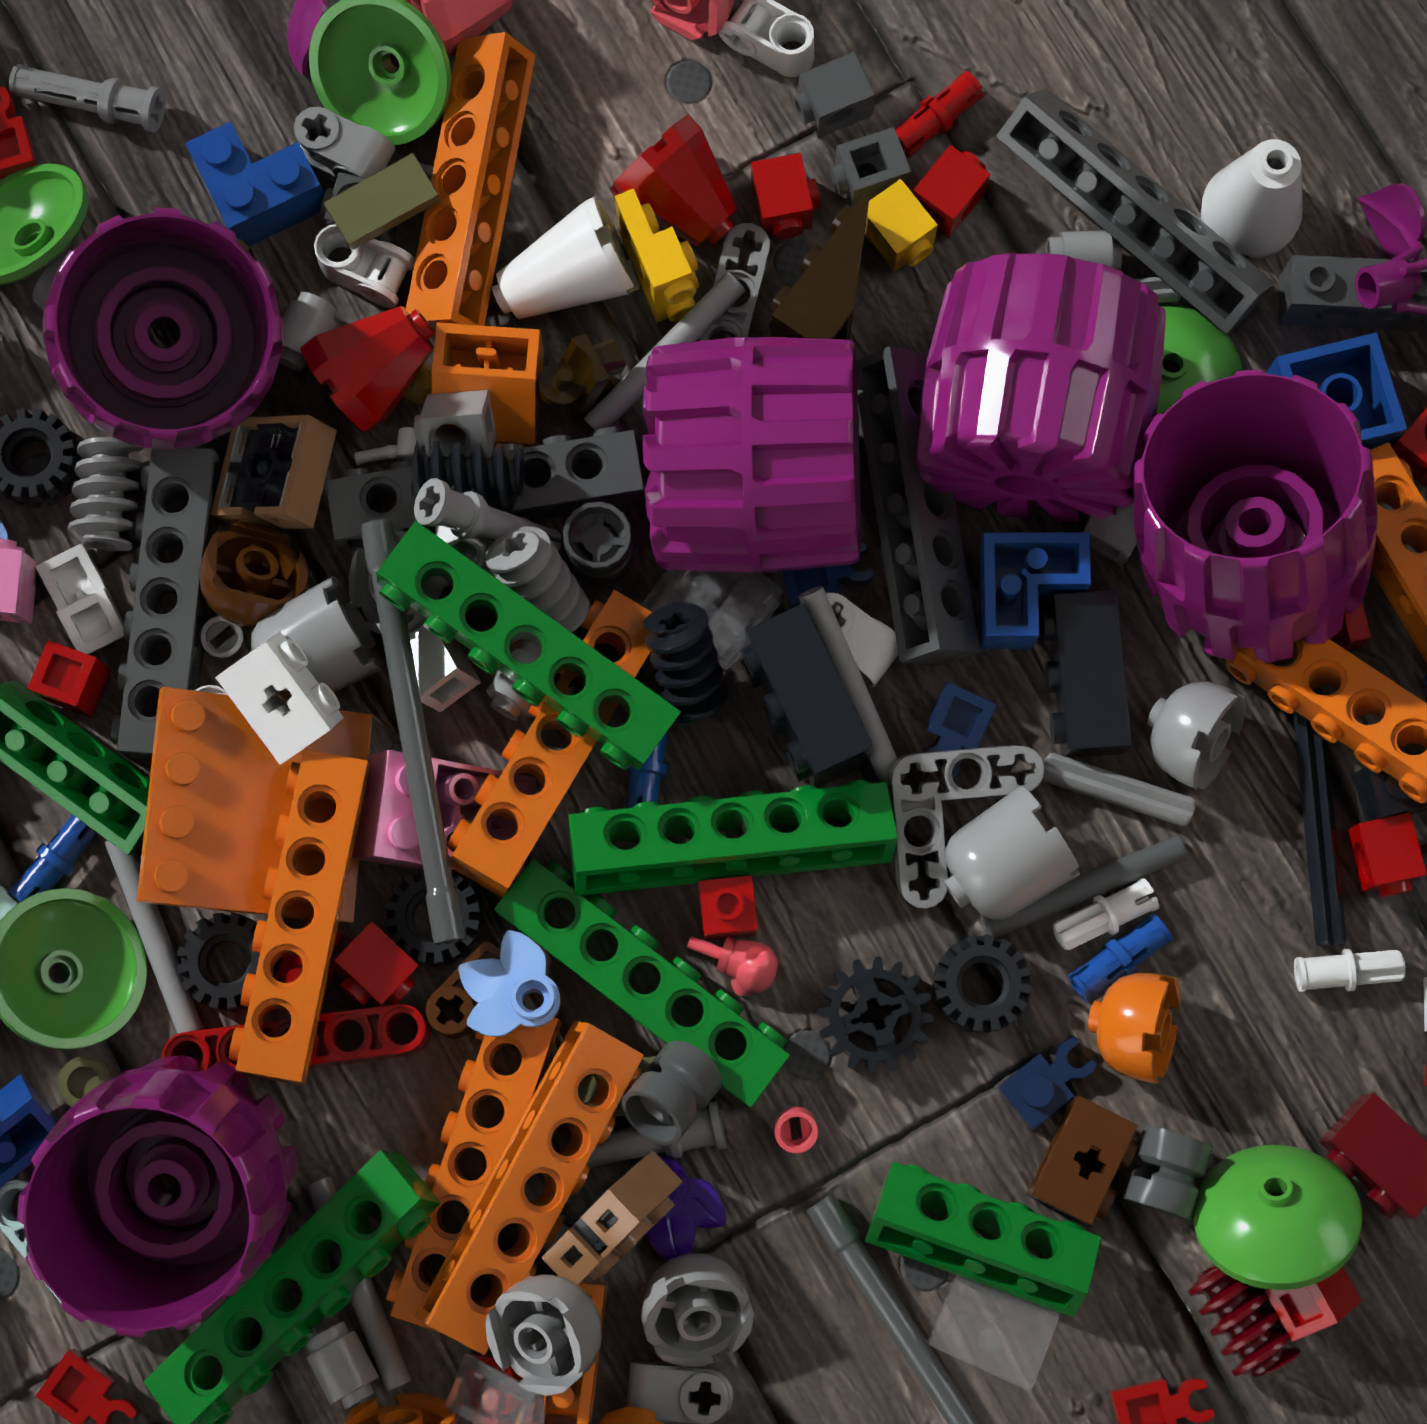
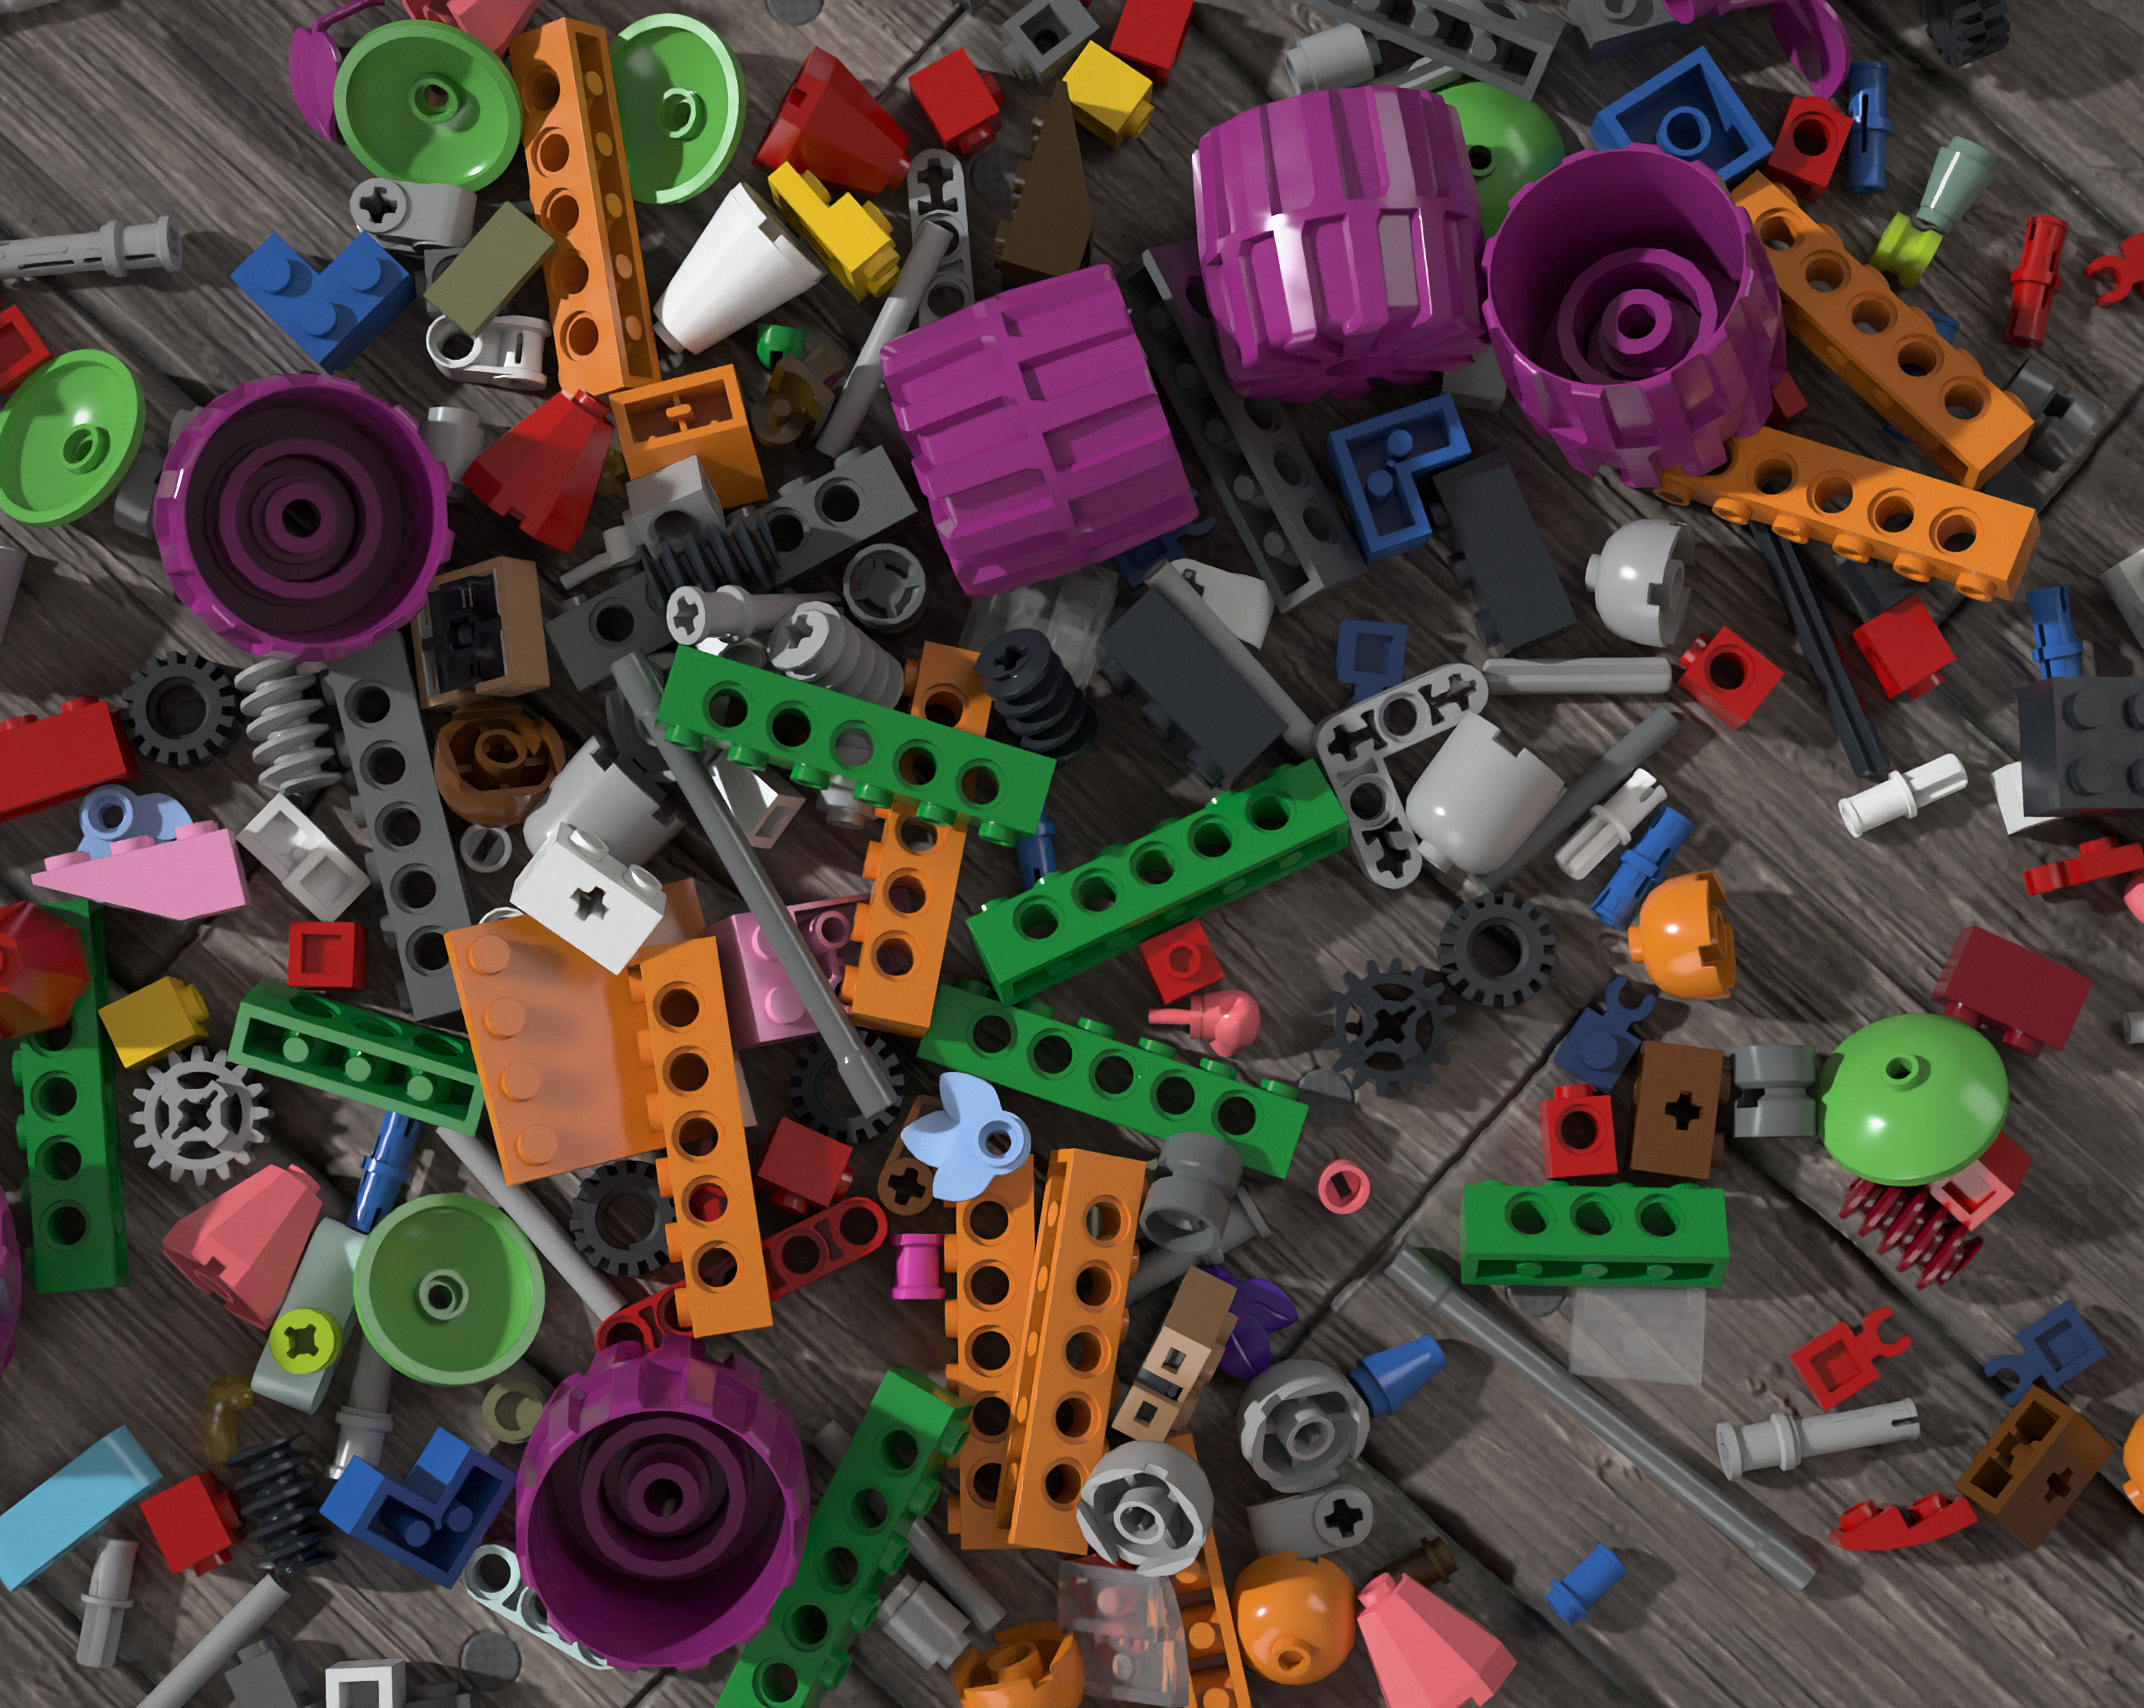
camera: 20 degrees left, 5 degrees up
(437, 1077) = (916, 1266): none -> dark pink bush
(567, 126) = (659, 75): none -> bright green dish
(581, 324) = (779, 339): none -> green hinge
(787, 1296) = (1396, 1374): none -> blue cone
(980, 1169) = (1560, 1158): none -> red brick
(1233, 852) = (1755, 672): none -> red brick

